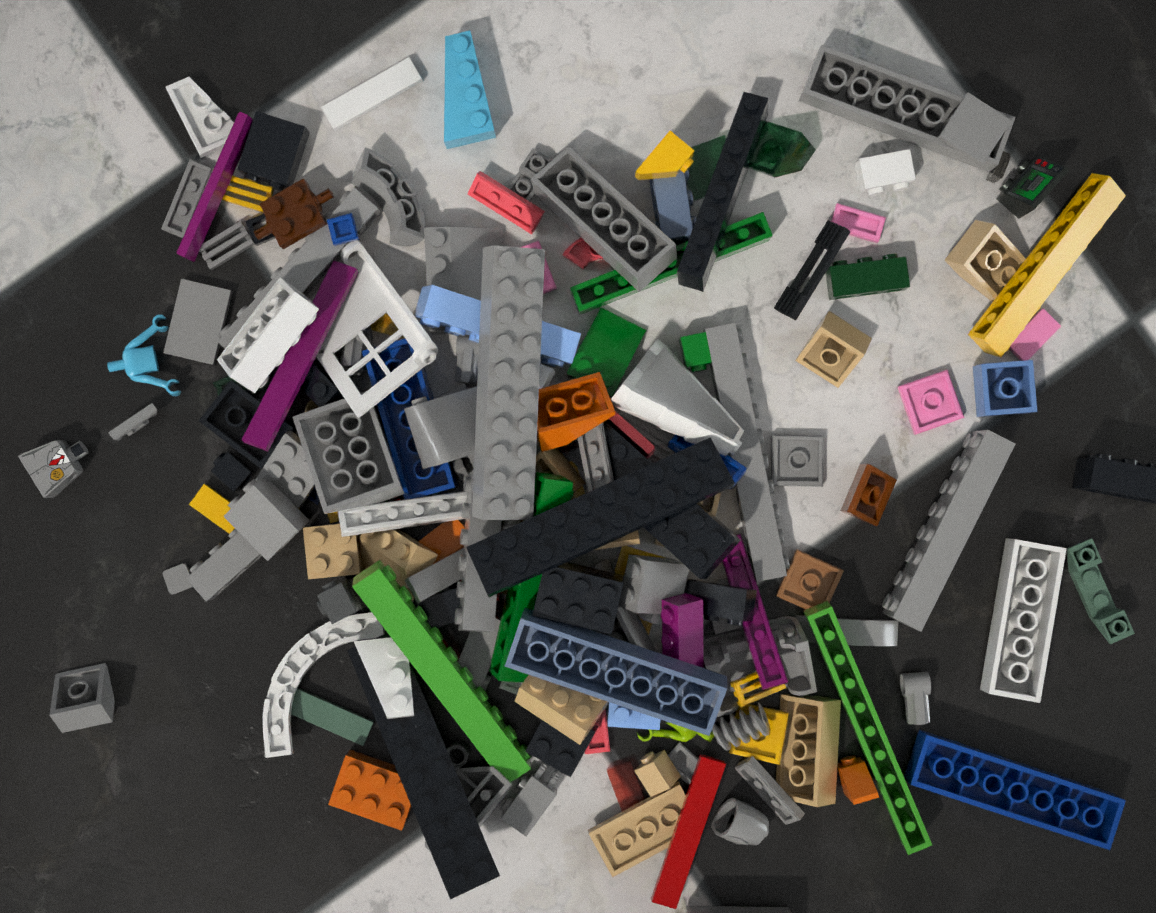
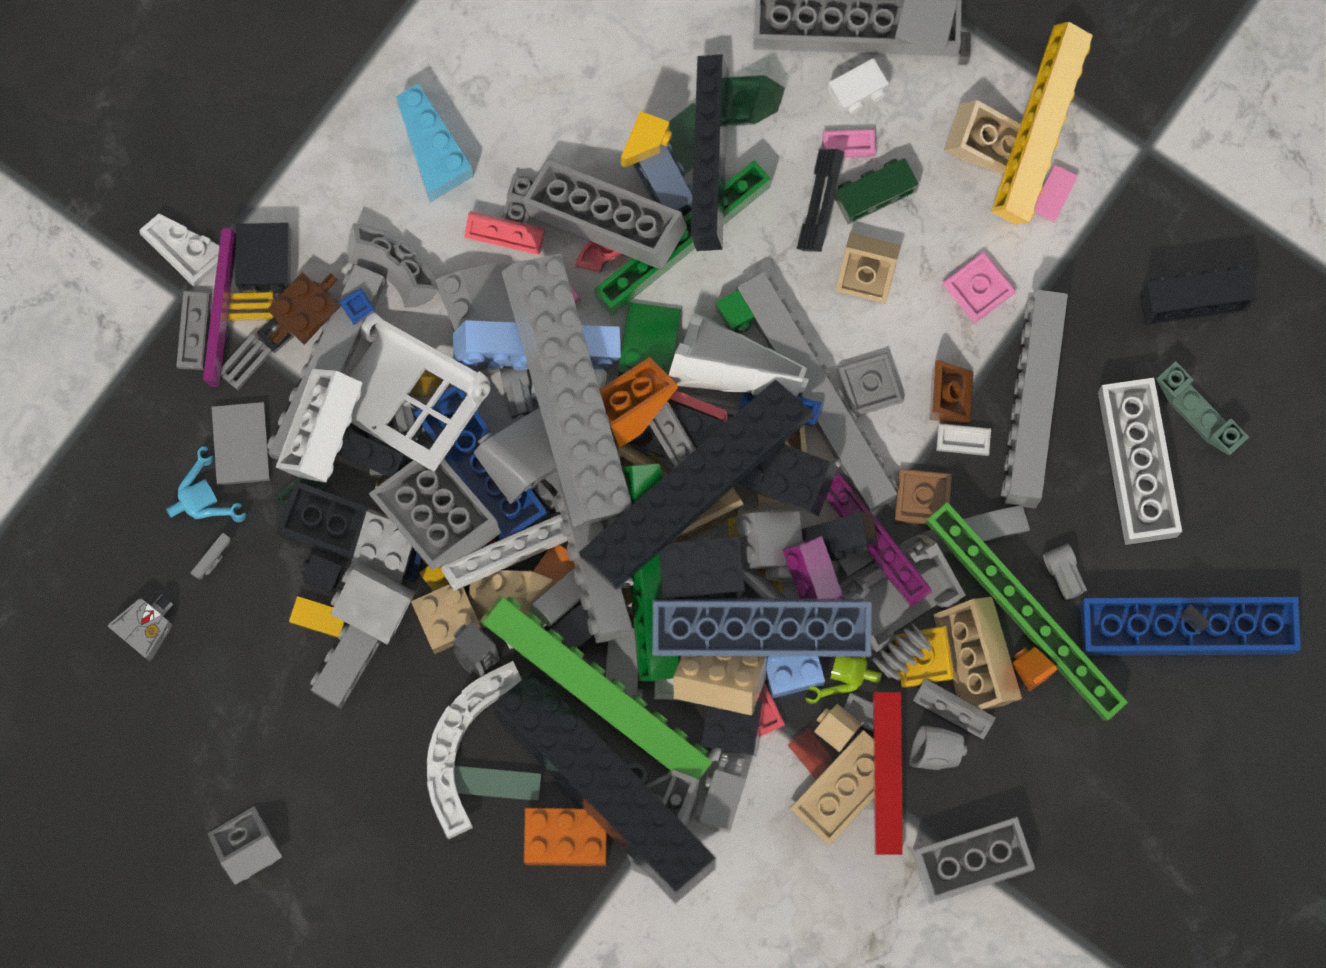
camera: 15 degrees left, 10 degrees down
(176, 578) = (300, 699): light grey piece -> none
(299, 358) = (357, 438): magenta tile -> none
(371, 94) = (340, 173): white tile -> none
(389, 675) = (543, 706): white wing -> none
(739, 692) = (891, 621): yellow tile -> none
(865, 541) = (963, 439): none -> white tile
(1004, 388) = (1043, 250): medium blue brick -> none
(1024, 793) = (1195, 619): none -> clear smoke tile
(1031, 185) = (999, 56): pearl dark grey slope -> none

